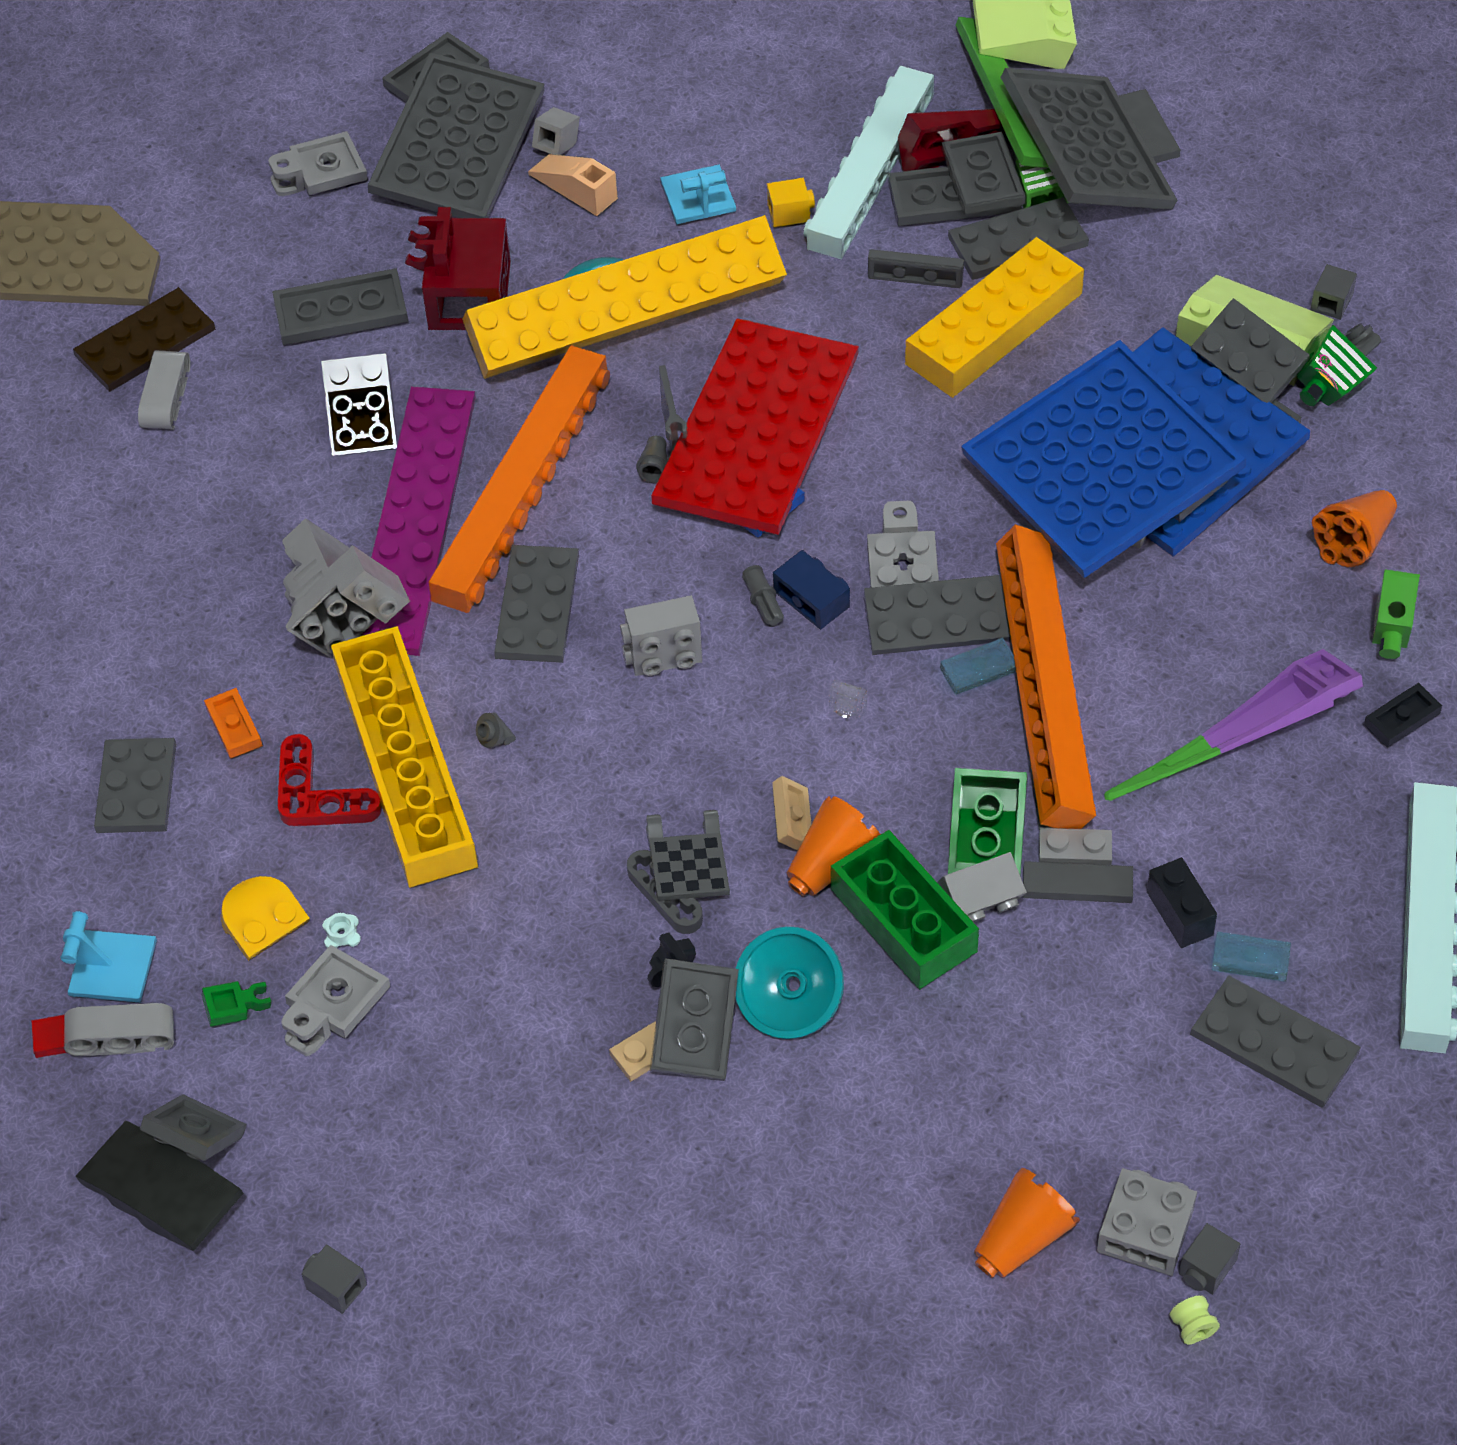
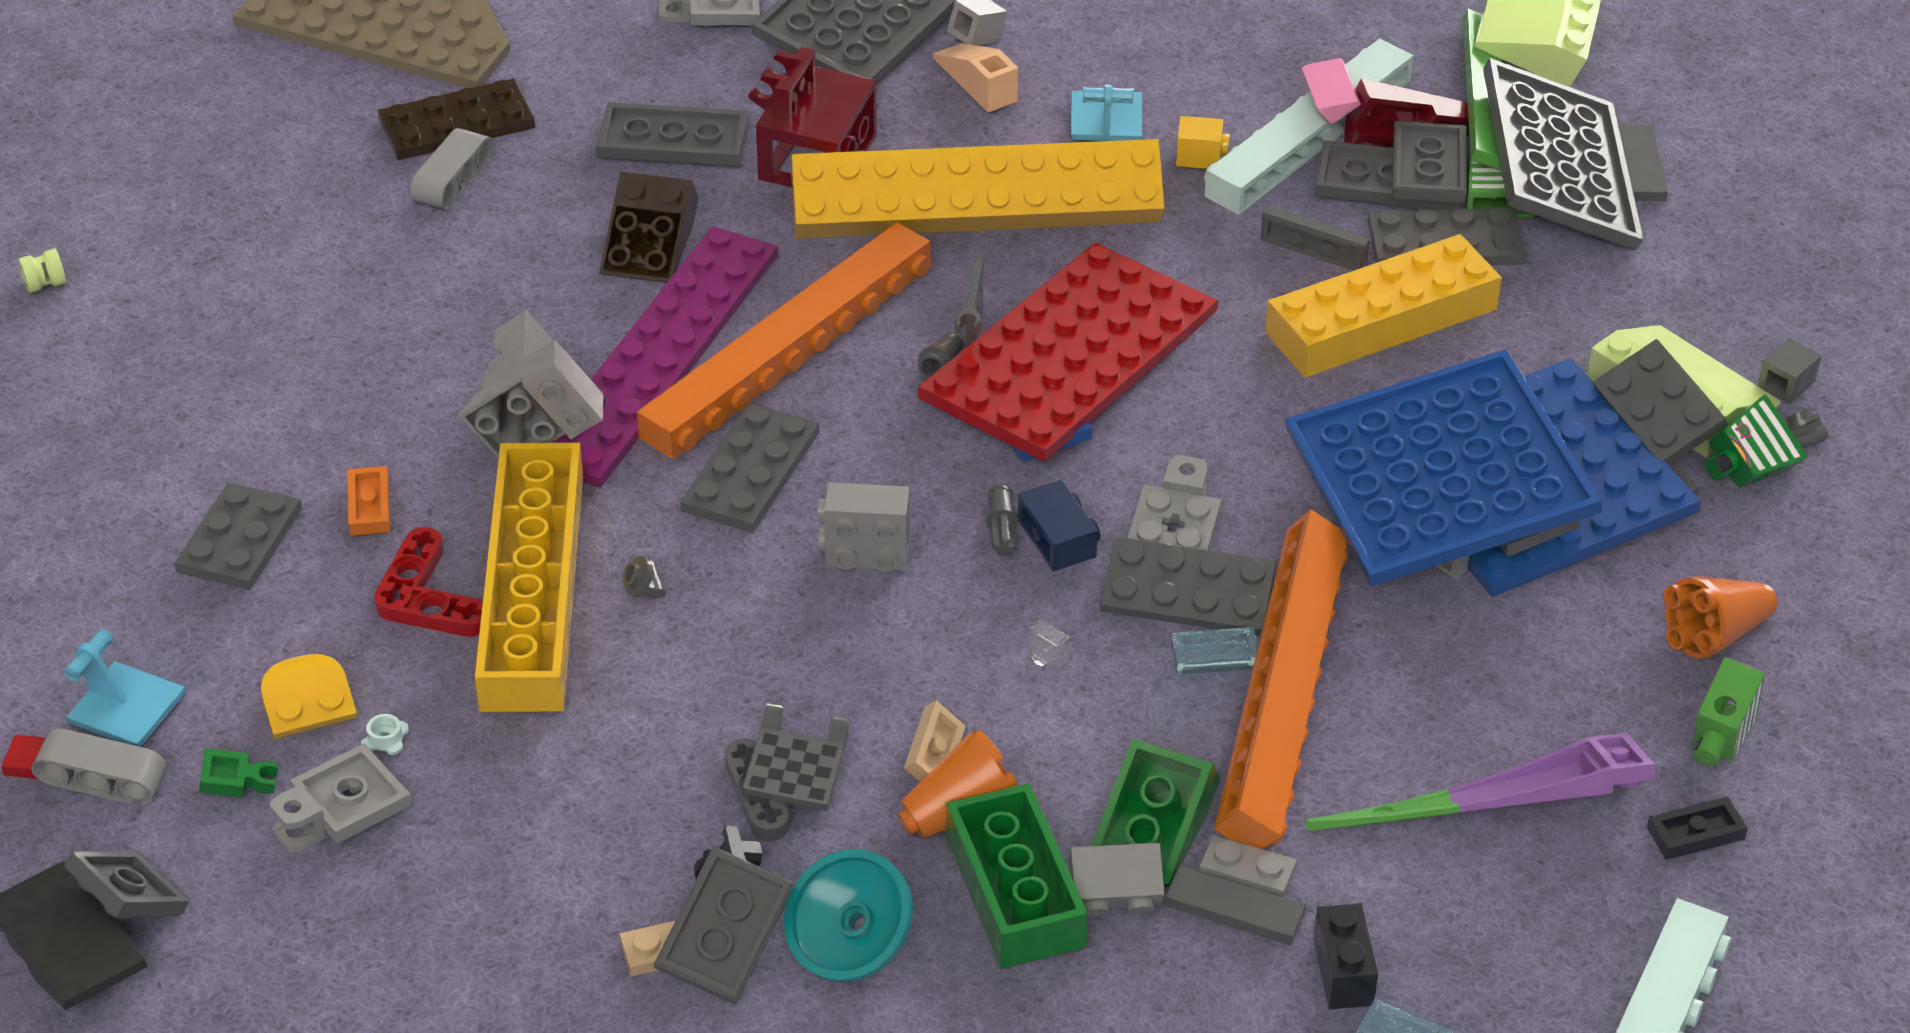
camera: 15 degrees right, 10 degrees down
(883, 126) = (1331, 88): none -> bright pink slope

